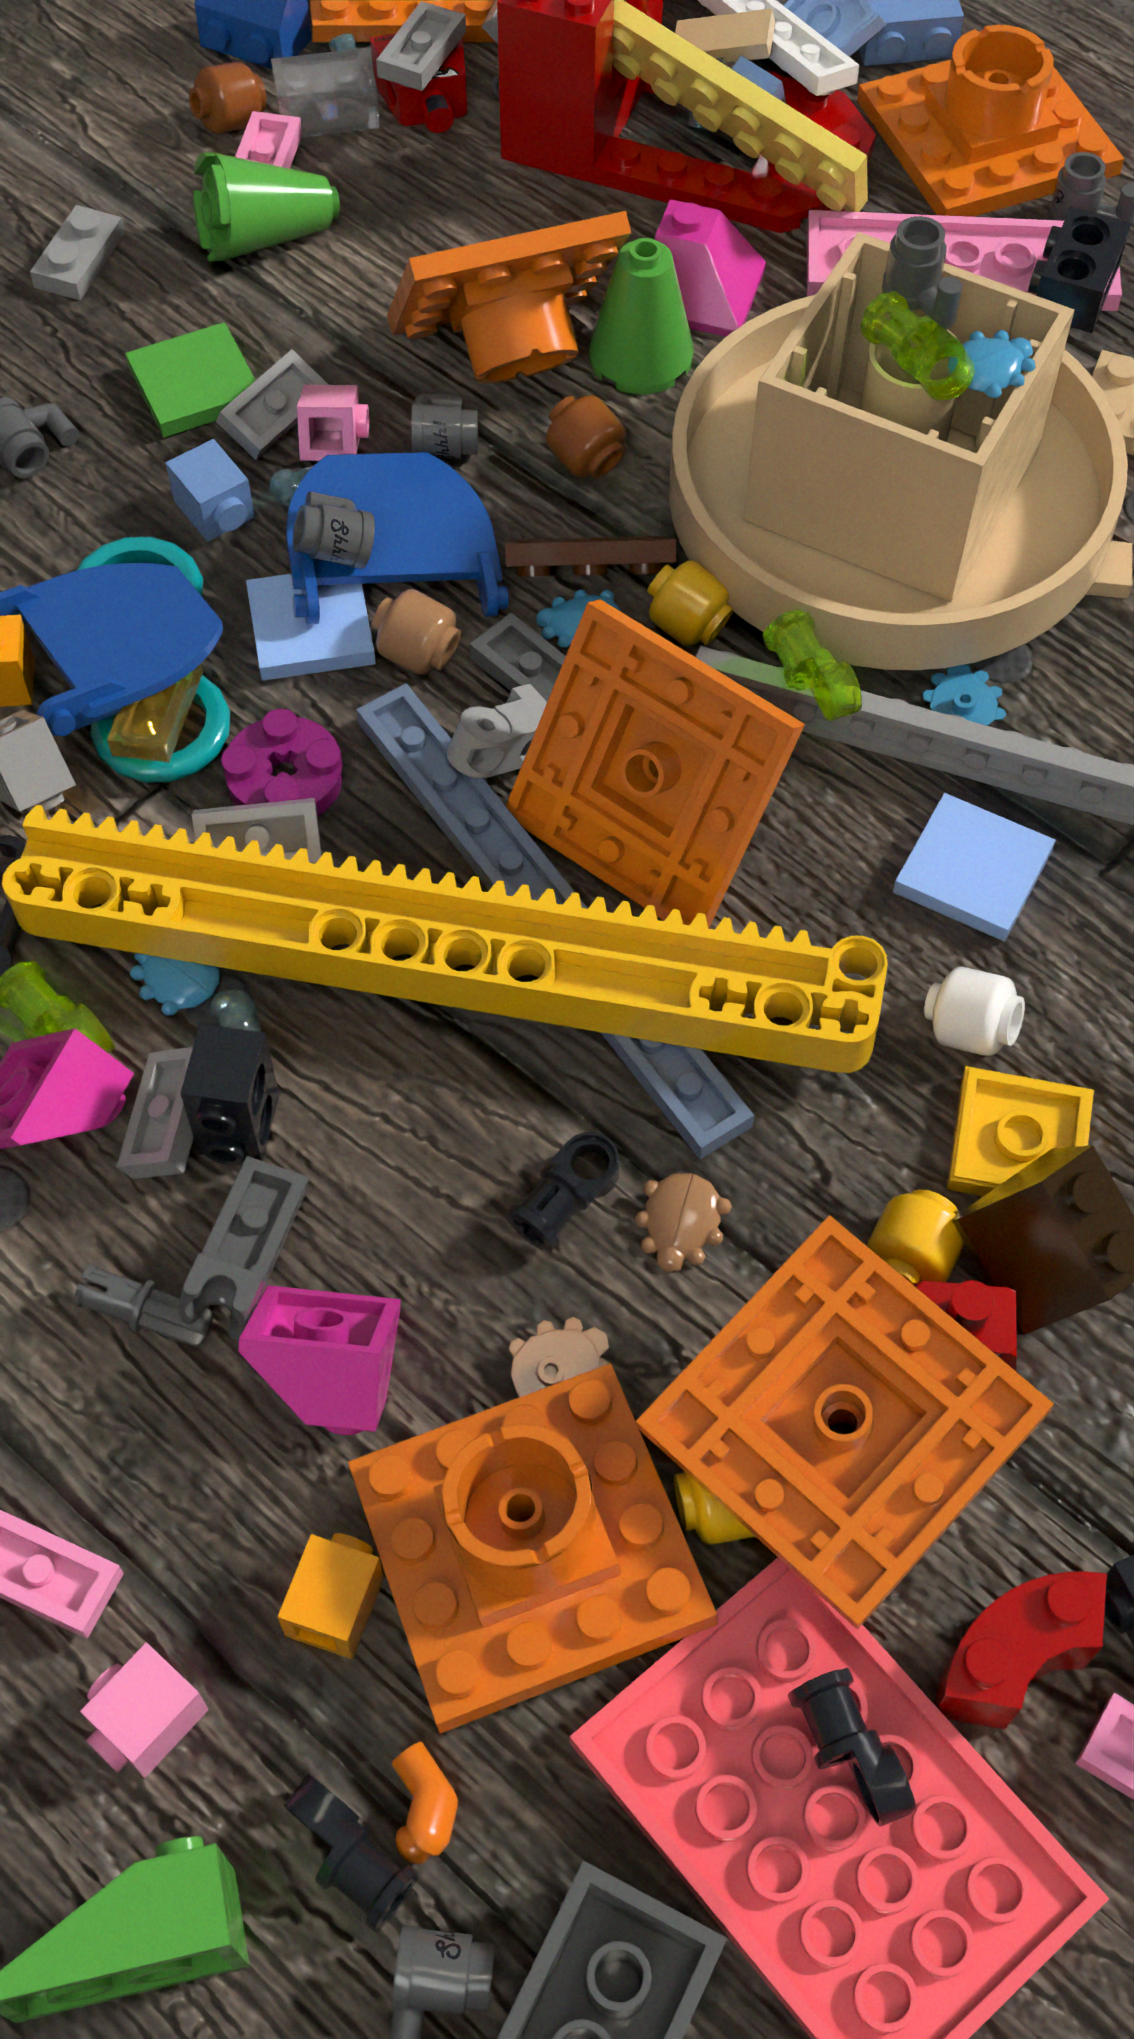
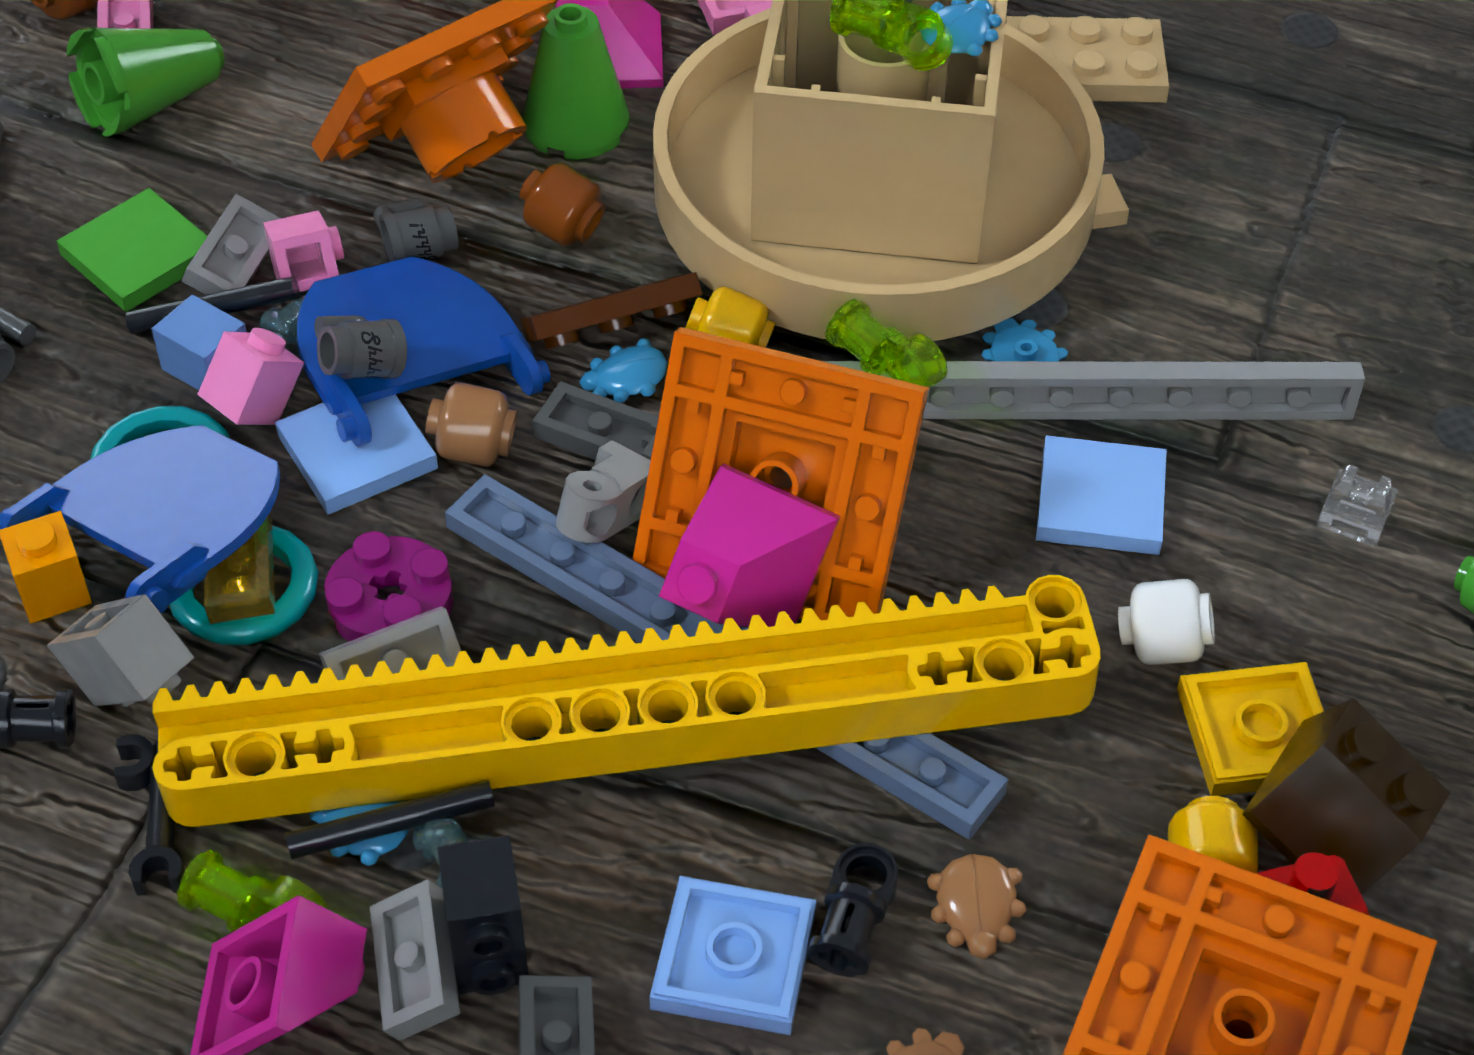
camera: 20 degrees left, 10 degrees down
(194, 981) = (389, 819): none -> black bar
(235, 532) = (251, 377): none -> bright pink brick
(243, 452) = (227, 301): none -> black bar
(444, 1196) = (733, 955): none -> light blue tile
(599, 830) = (748, 552): none -> dark pink slope

